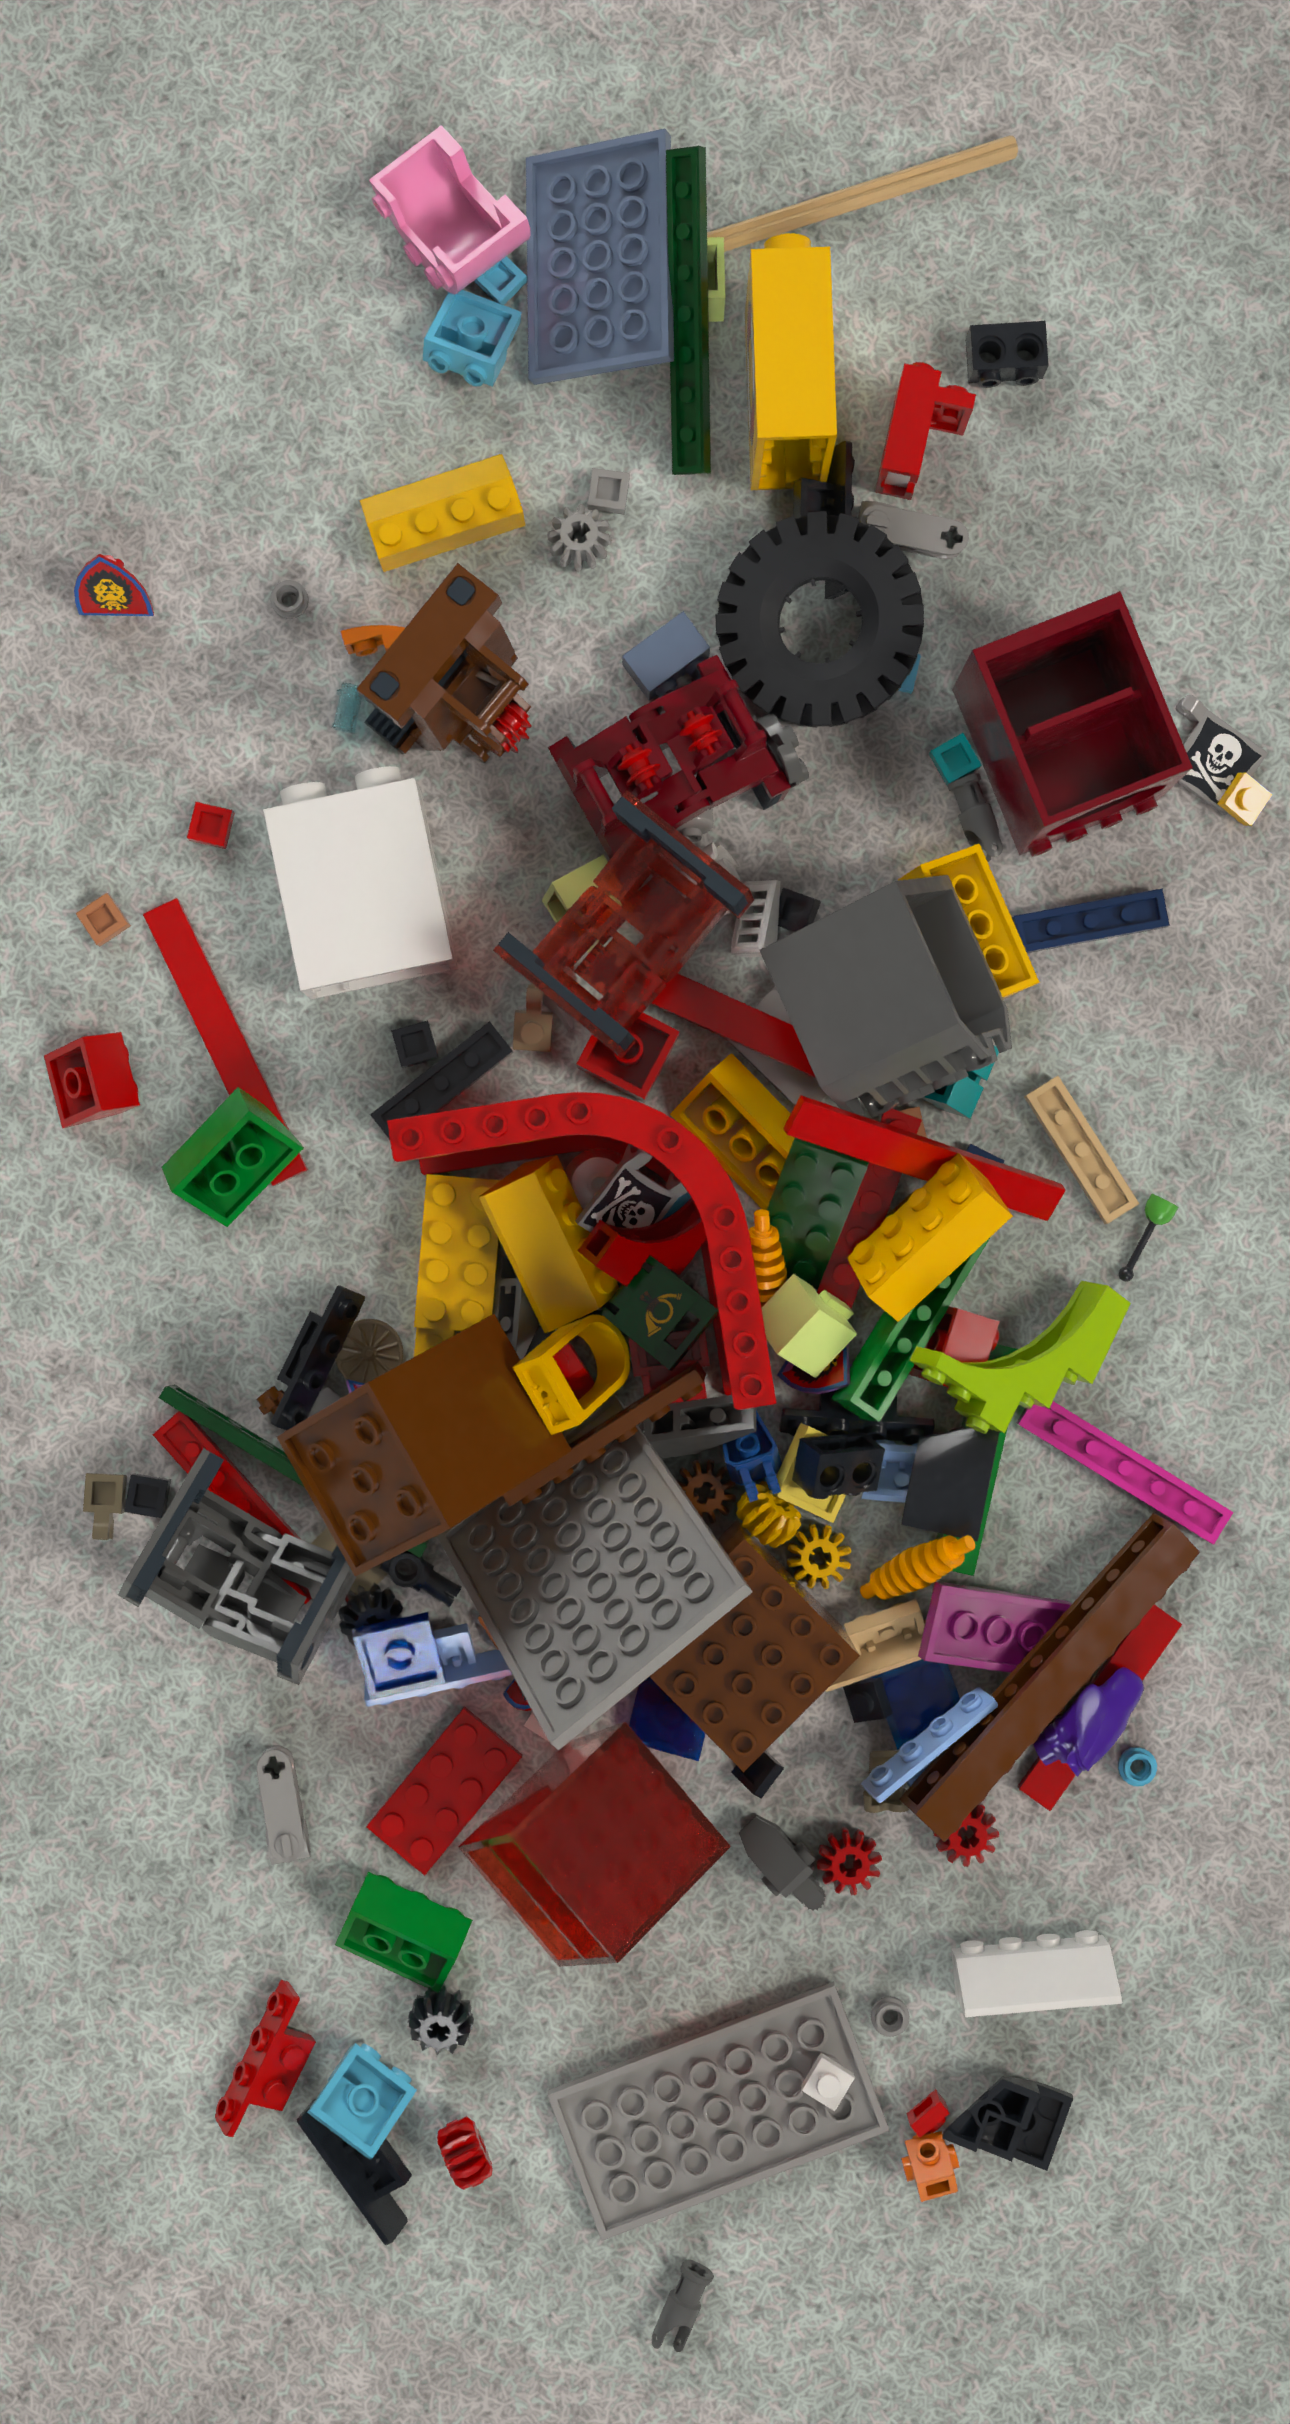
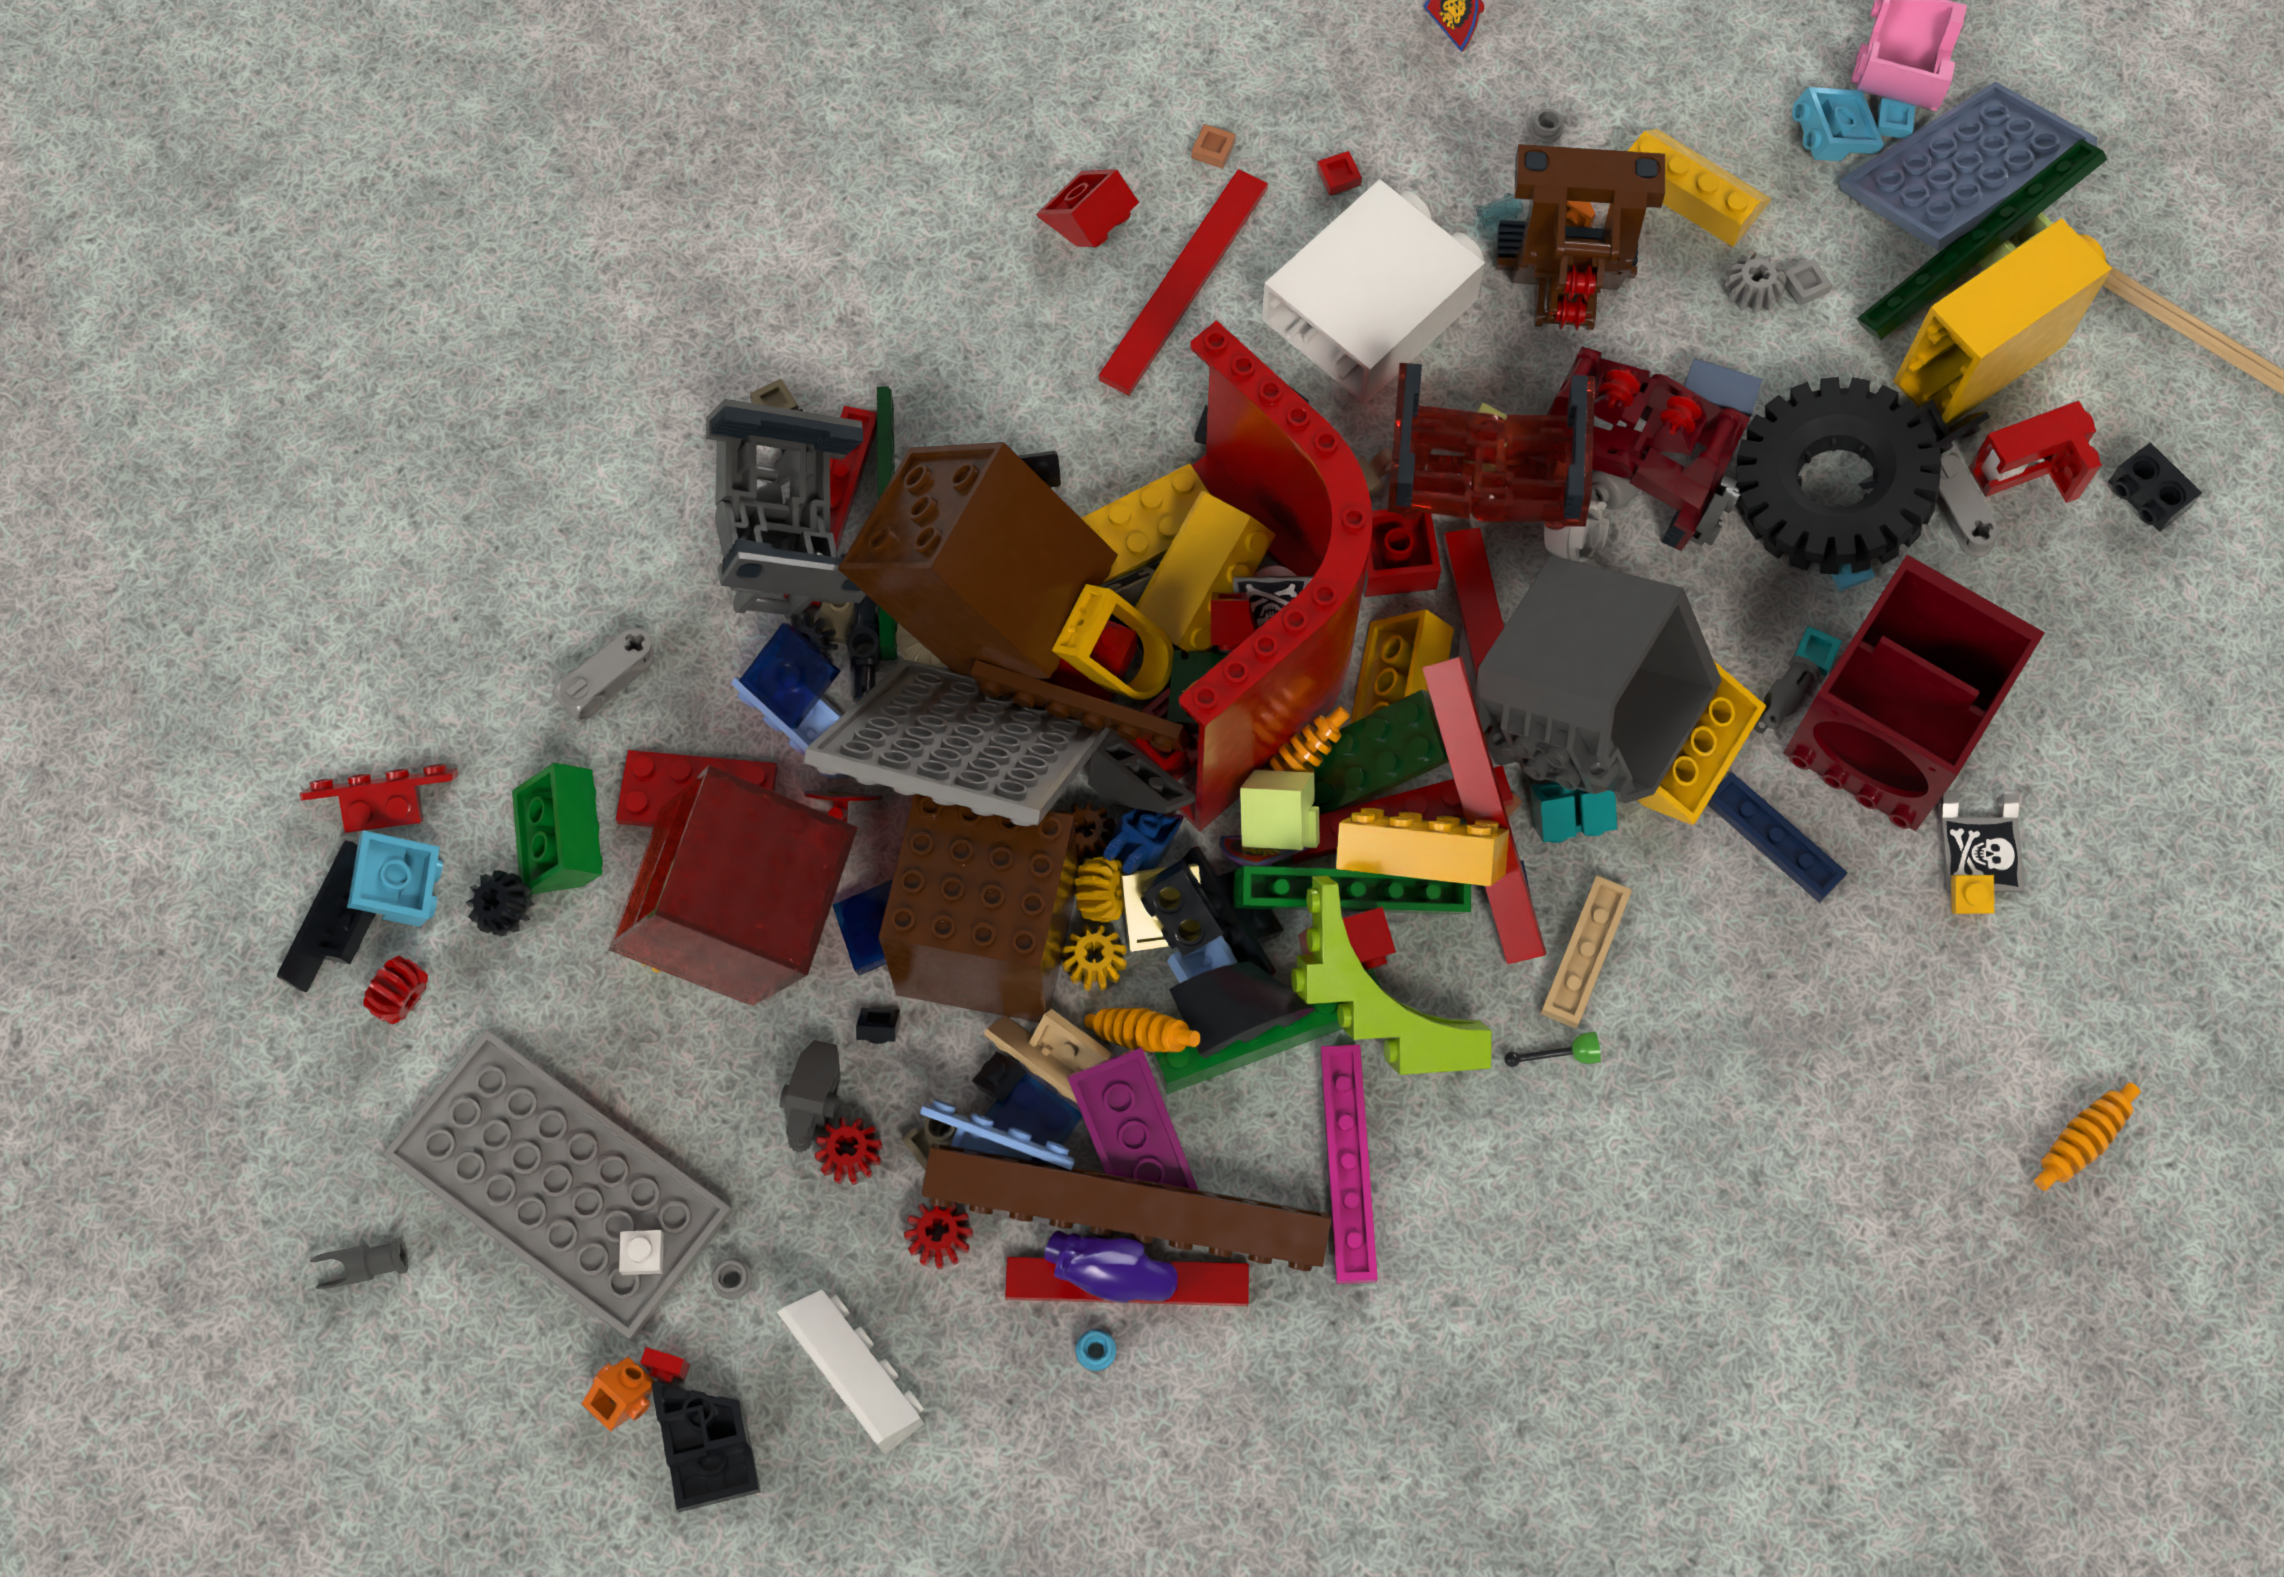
camera: 55 degrees right, 20 degrees down
(231, 1158) = (1099, 330): green slope -> none

